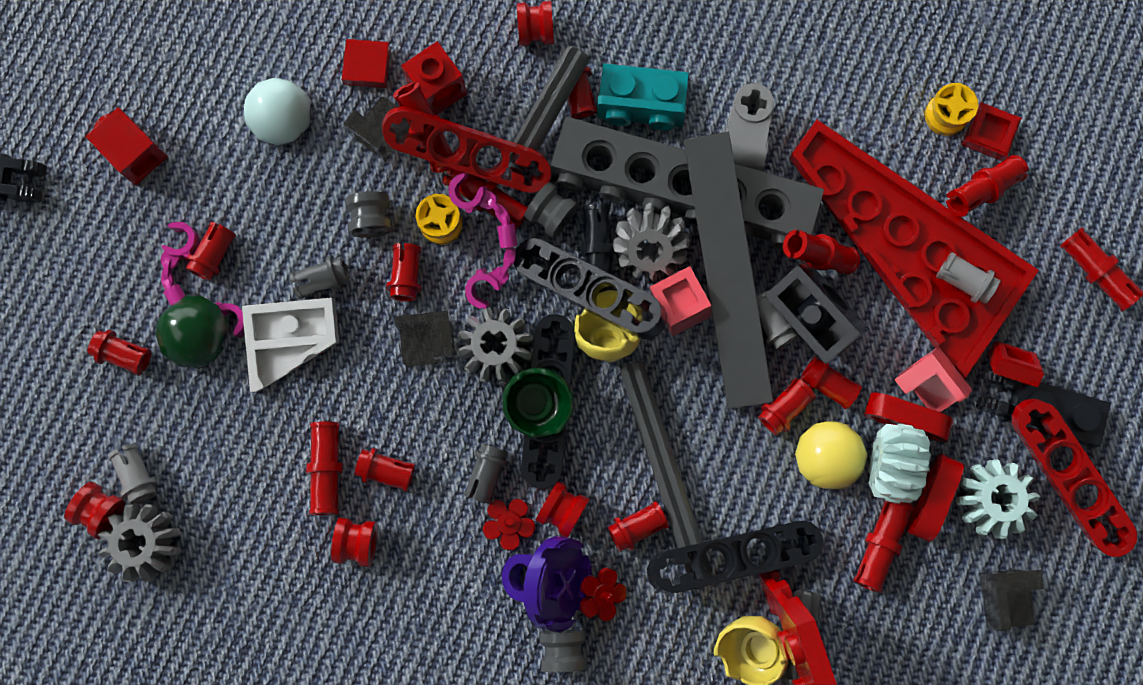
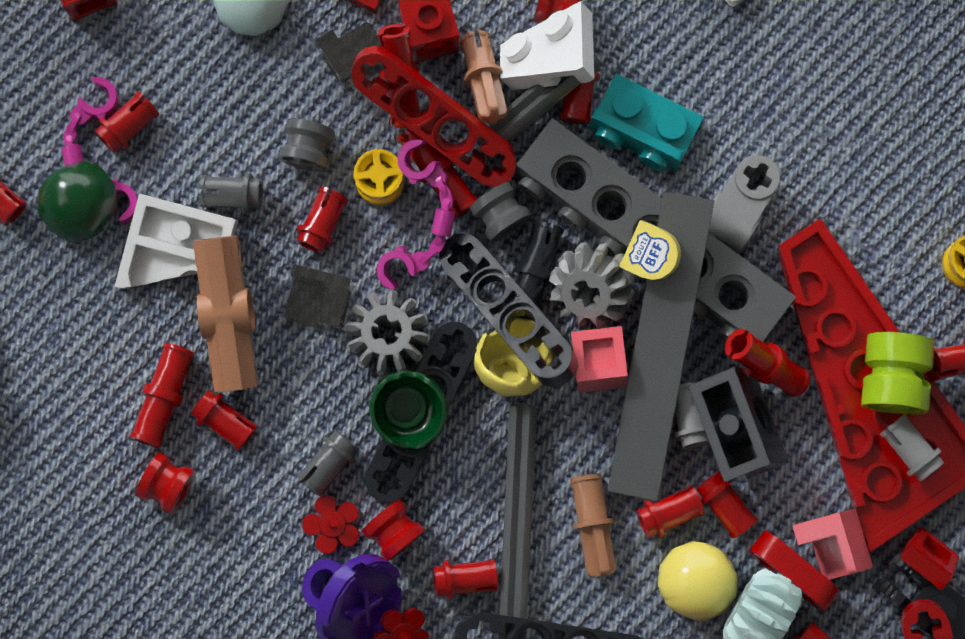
camera: 15 degrees right, 0 degrees up
(352, 379) = (226, 313): none -> nougat piece
(495, 104) = (483, 77): none -> nougat axle
(543, 60) = (550, 51): none -> white wing
(693, 194) = (651, 252): none -> tile
(727, 441) = (593, 525): none -> nougat axle
(933, 220) = (897, 373): none -> lime wheel

